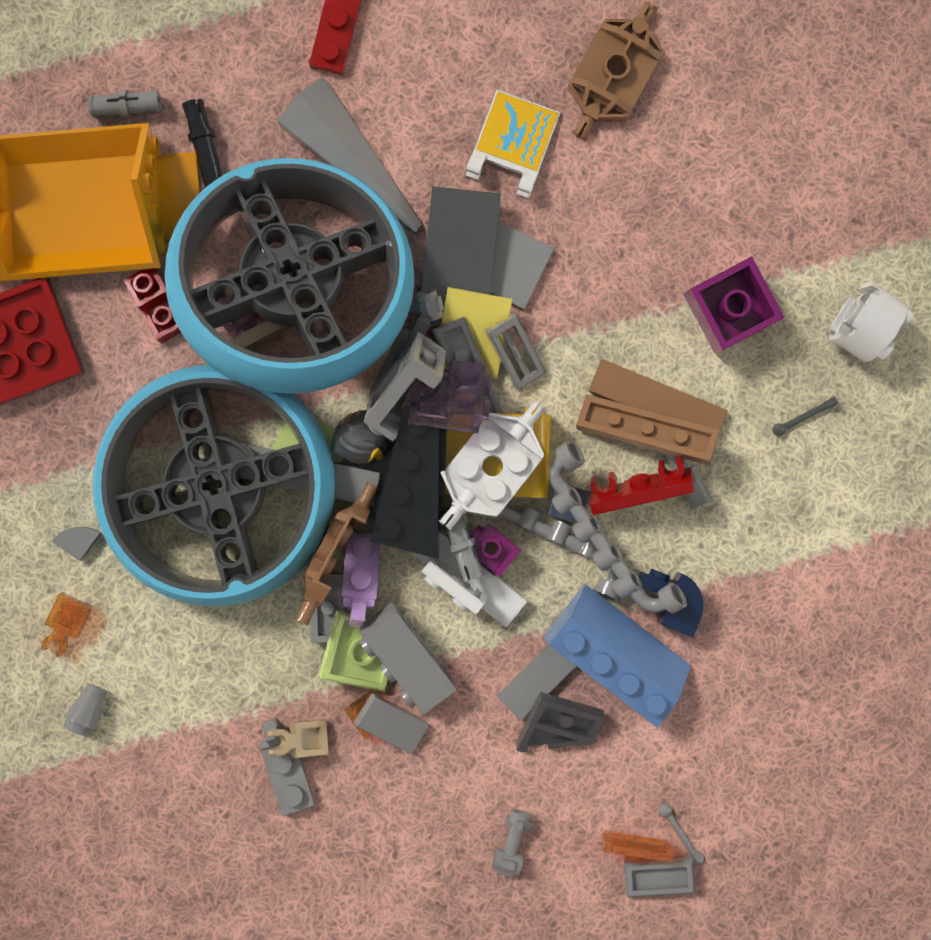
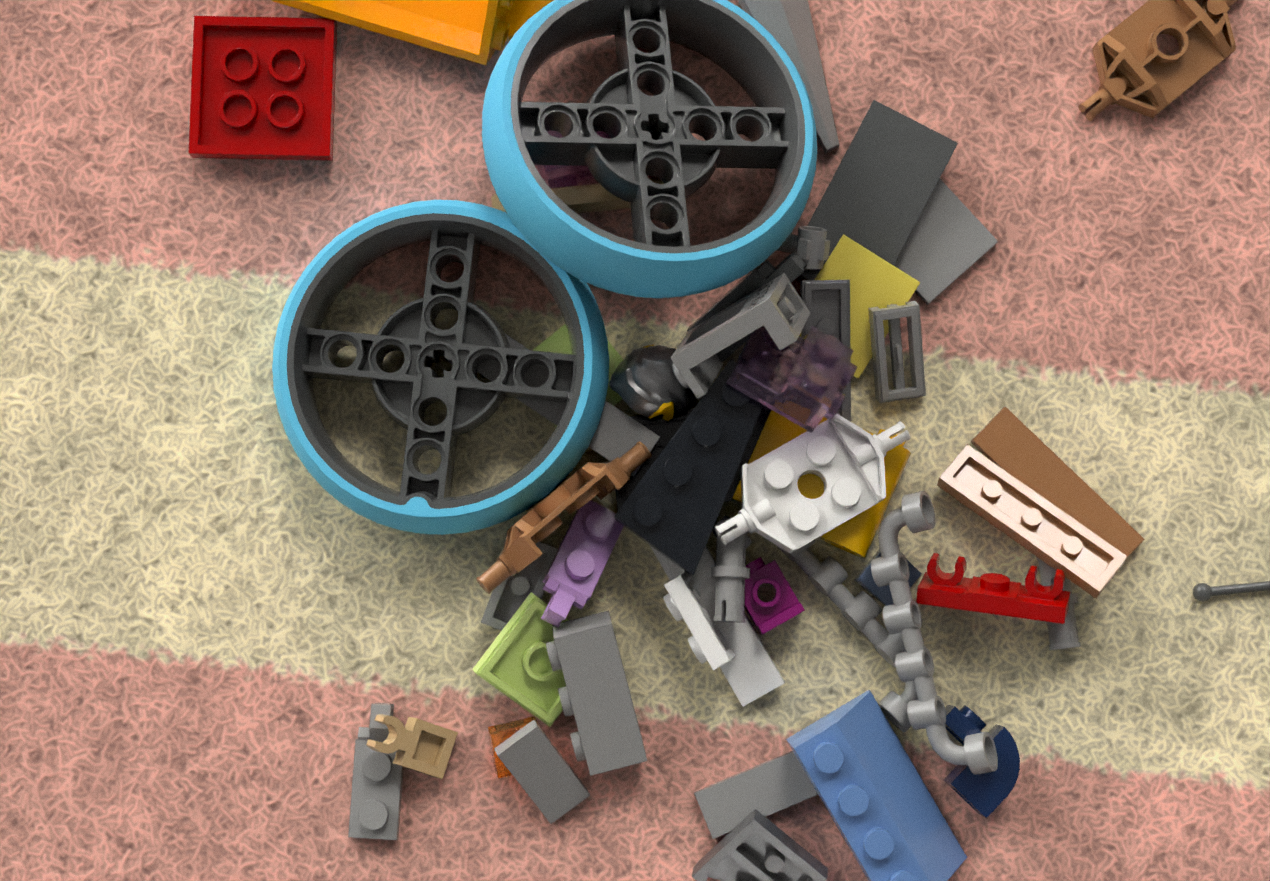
camera: 20 degrees right, 5 degrees down
(67, 619) = (177, 464): clear orange plate -> none
(77, 541) = (232, 369): light grey tile -> none
(85, 711) = (151, 592): light grey cone -> none
(150, 296) = (459, 109): red slope -> none
(514, 139) = (1000, 83): flag -> none
(733, 305) = (1205, 404): magenta brick -> none

